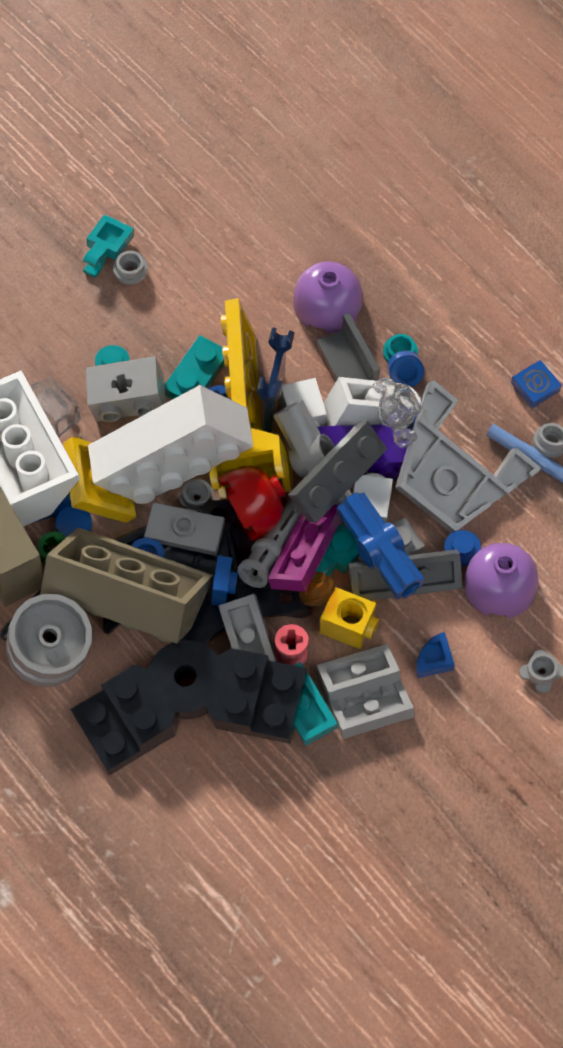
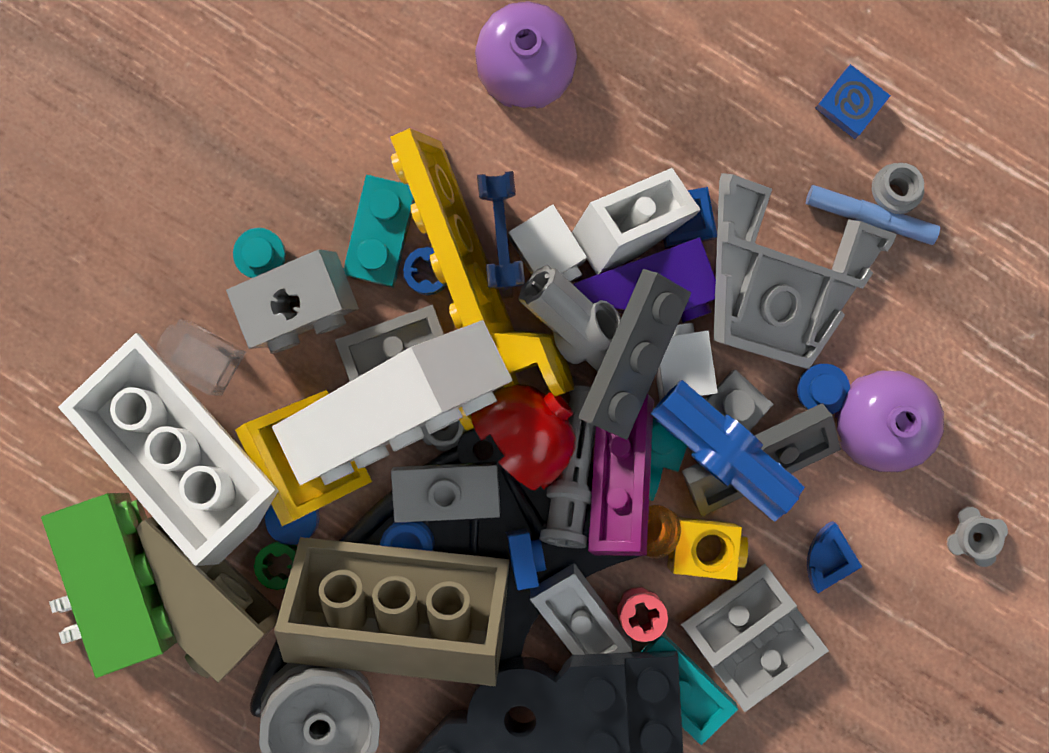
camera: 20 degrees left, 25 degrees up
(106, 240) = (187, 61): teal plate -> none
(126, 260) = (226, 82): light grey plate -> none
(347, 353) = (586, 148): dark grey panel -> none
(398, 343) = (651, 110): teal plate -> none
(398, 409) = (691, 229): clear piece -> none
(406, 368) = (669, 140): blue tile -> none

